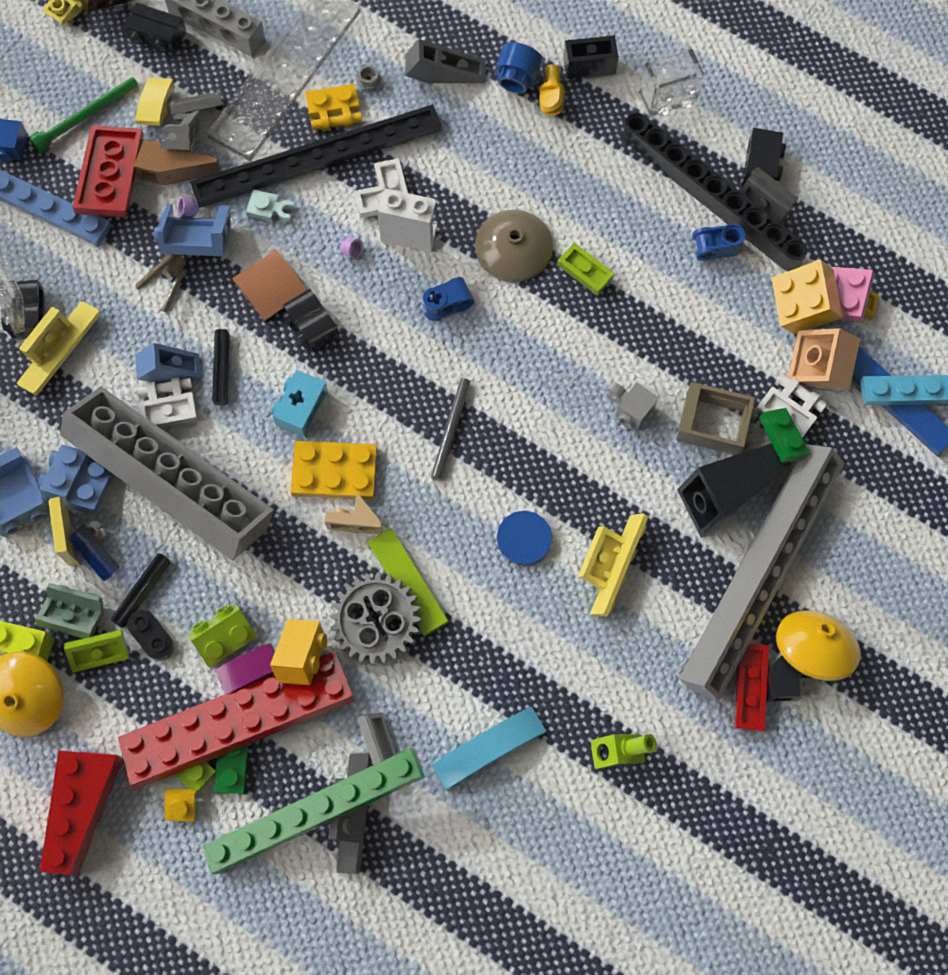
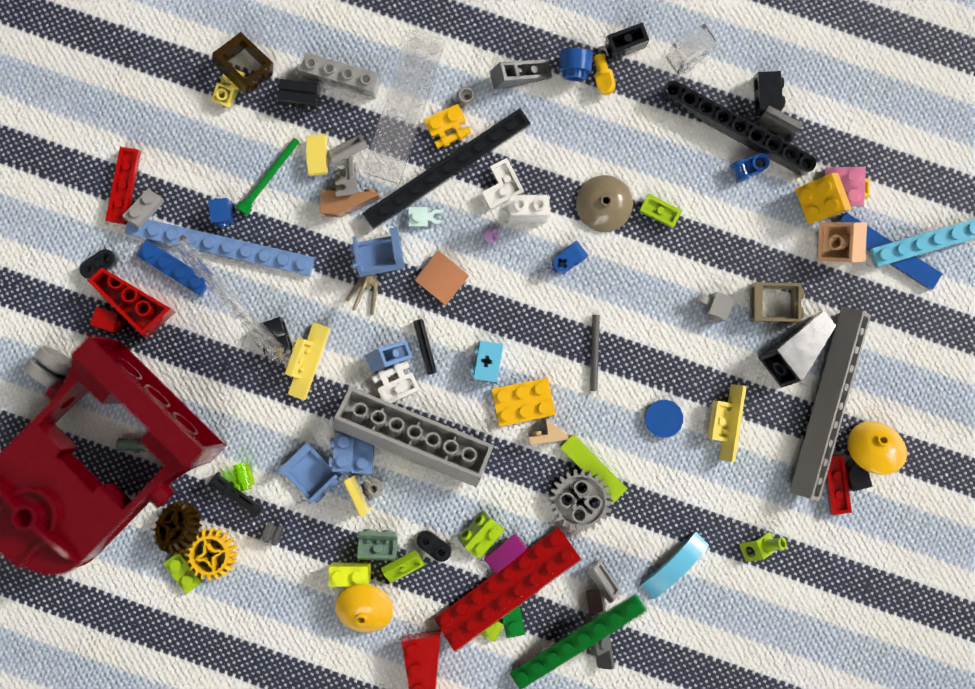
camera: 10 degrees left, 15 degrees up
(93, 552) = (381, 503): clear blue tile -> none
(108, 171) = (301, 219): red plate -> none
(140, 589) = (418, 517): black axle -> none
(180, 804) = (487, 651): yellow plate -> none
(187, 207) = (365, 232): lavender hinge -> none
(299, 652) = (538, 537): yellow brick -> none
(311, 321) = (478, 298): black brick -> none
(784, 435) = (827, 306): green plate -> none
(800, 414) = (822, 285): white plate -> none

